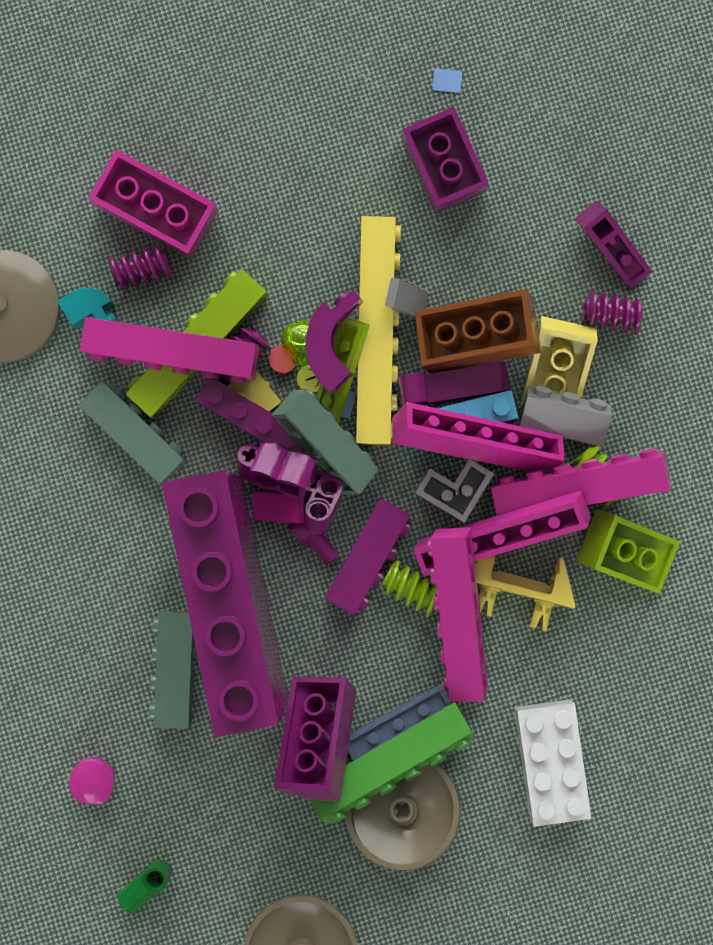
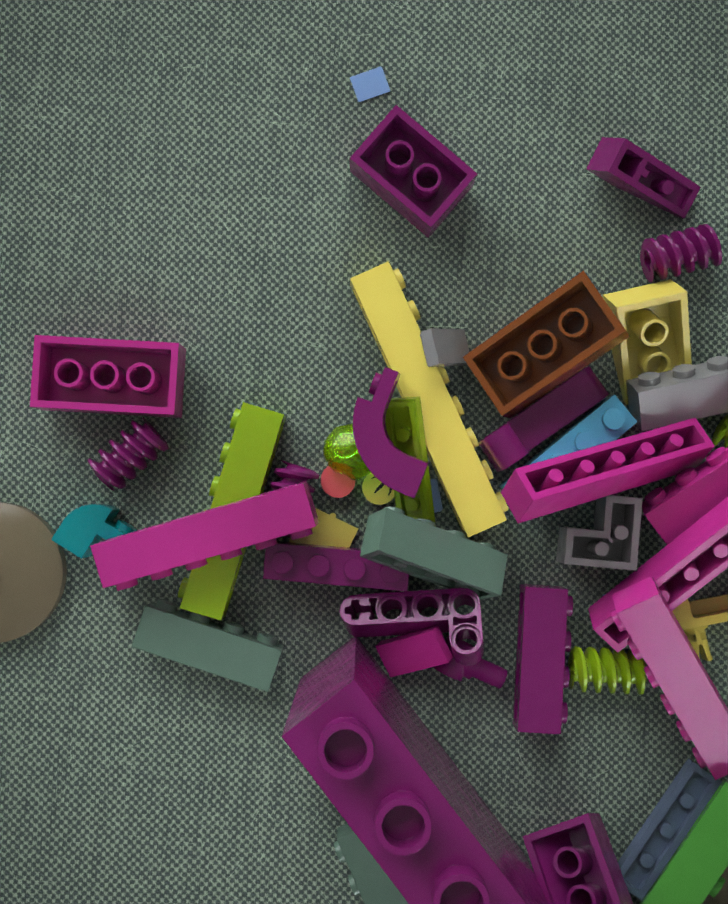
camera: 30 degrees left, 0 degrees up
(282, 470) = (402, 612): magenta brick -> none

